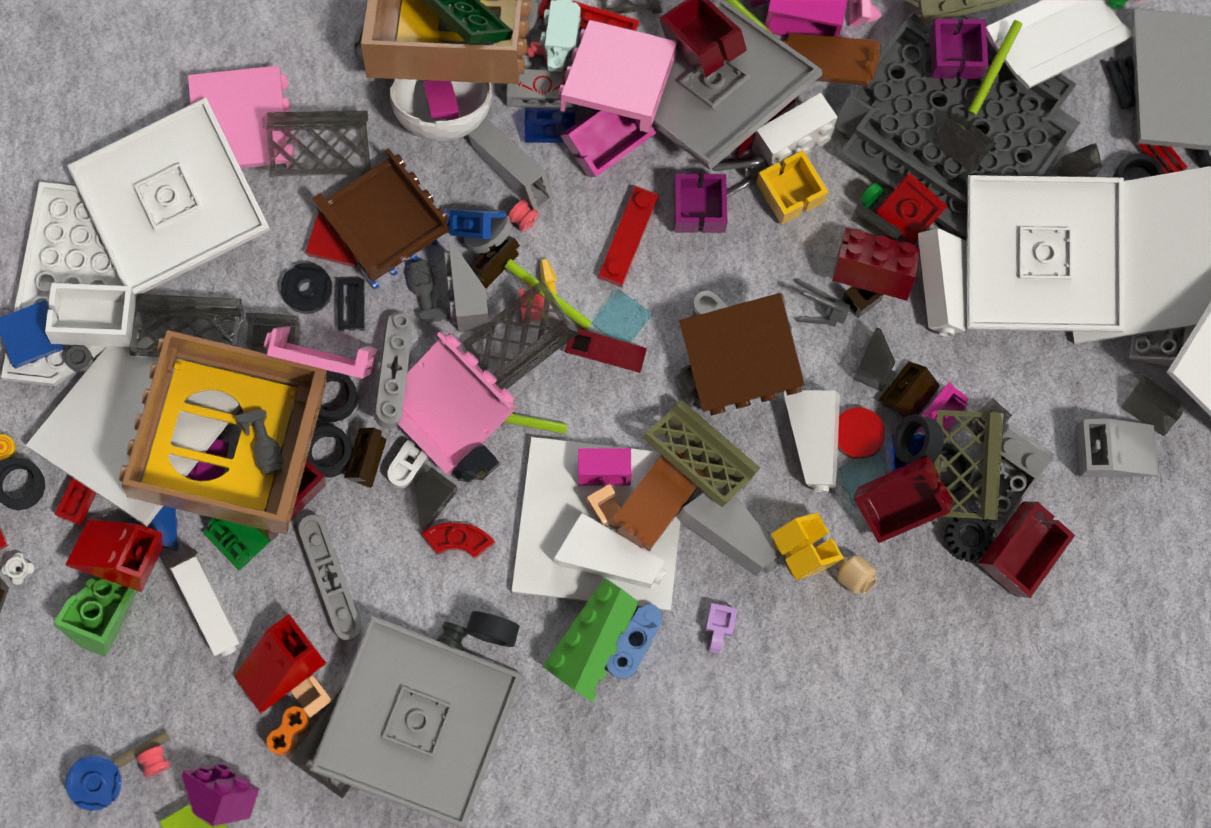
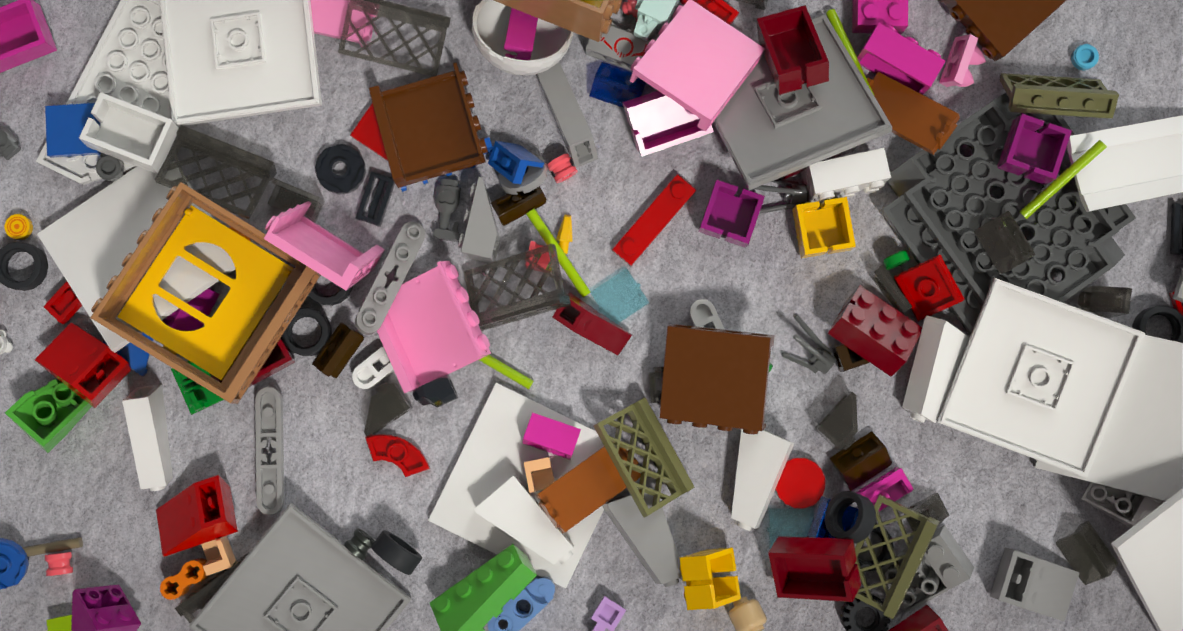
camera: 25 degrees right, 10 degrees up
(266, 449) = (243, 319): dark grey piece -> none

